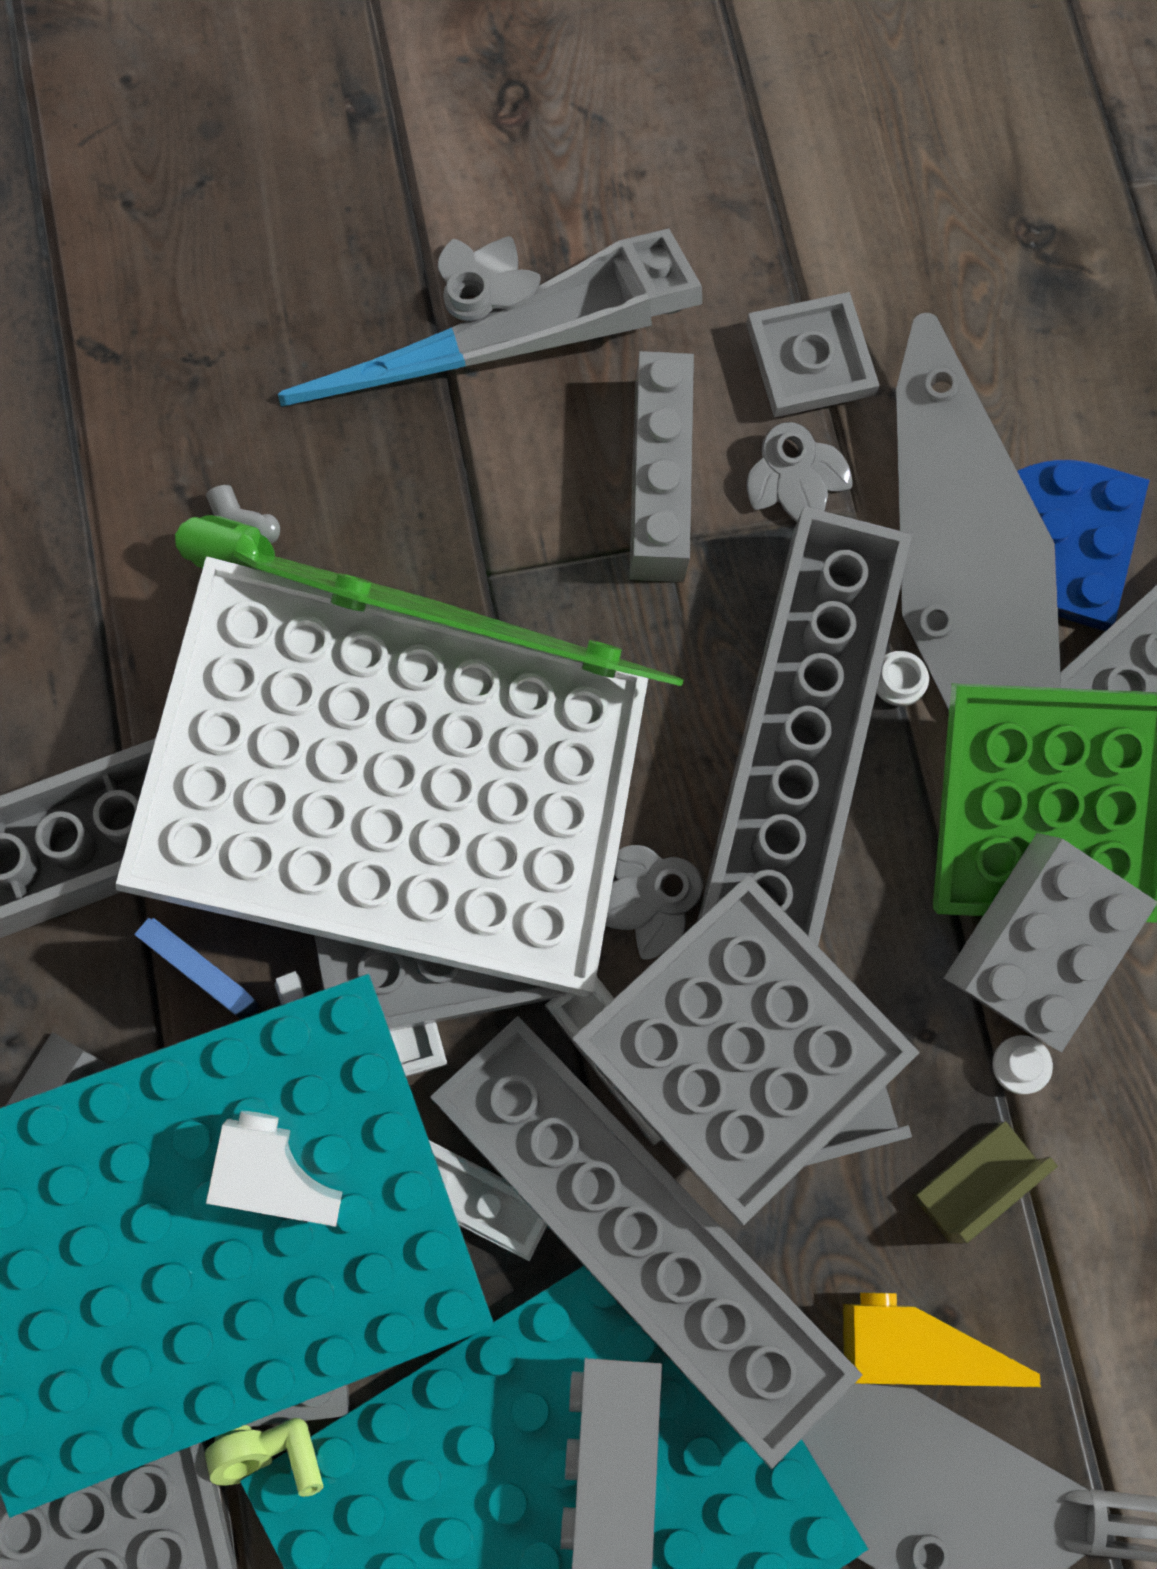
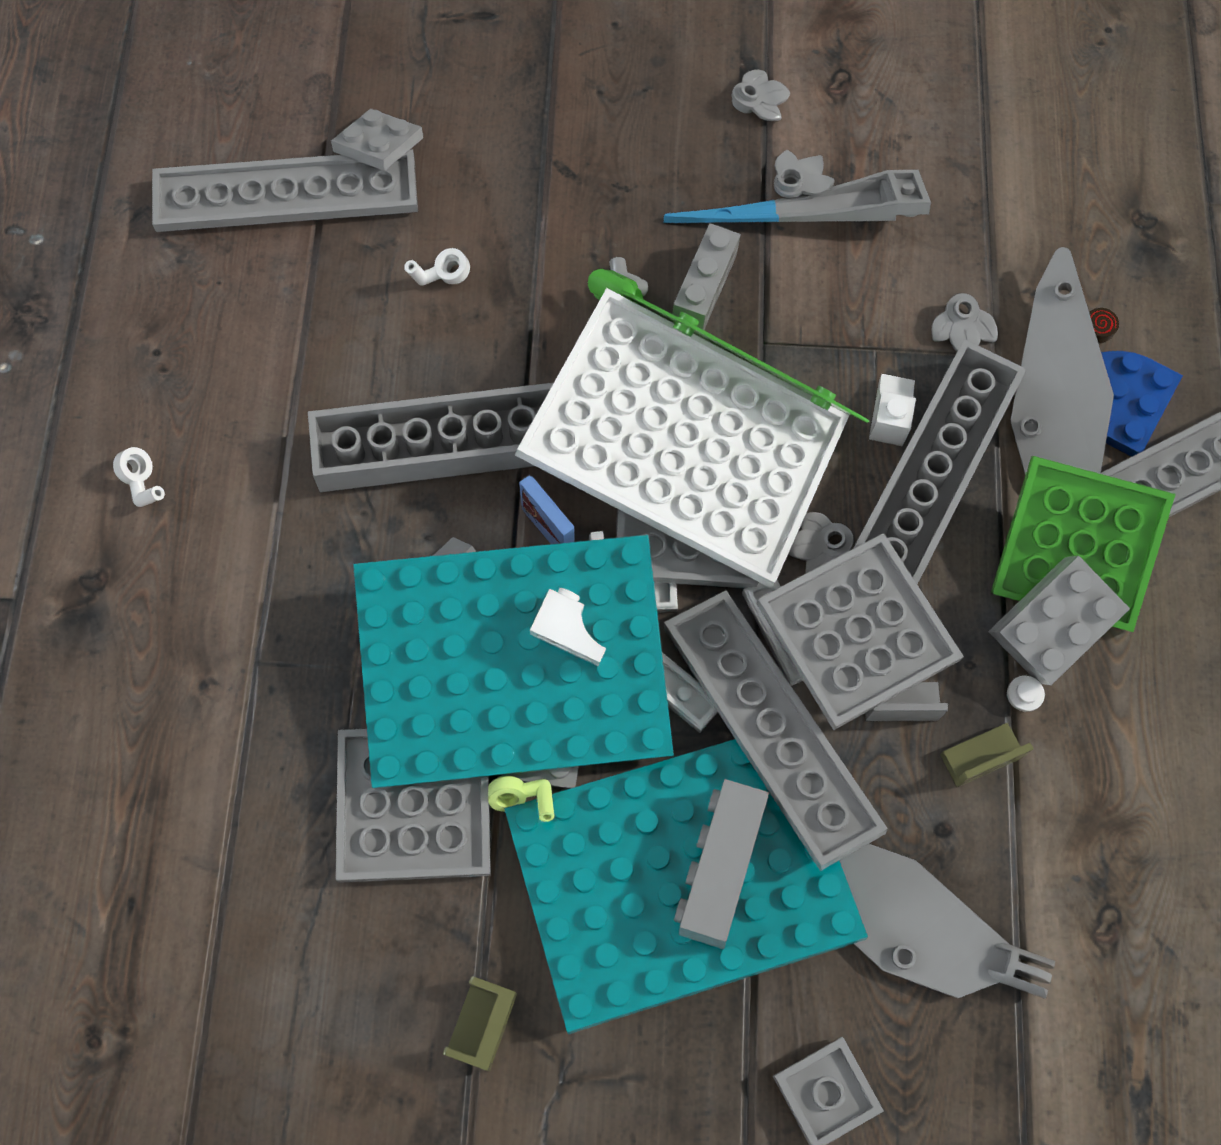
camera: 20 degrees right, 5 degrees down
(369, 490) = (707, 274): none -> light grey brick
(389, 154) = (760, 95): none -> light grey plate
(662, 467) = (883, 302): light grey brick -> none
(716, 642) = (893, 410): none -> white arch
(812, 354) = (989, 259): light grey plate -> none
(902, 678) = (1001, 455): white plate -> none
(914, 1348) = (926, 838): yellow slope -> none
(1012, 420) = (1104, 323): none -> dark brown tile

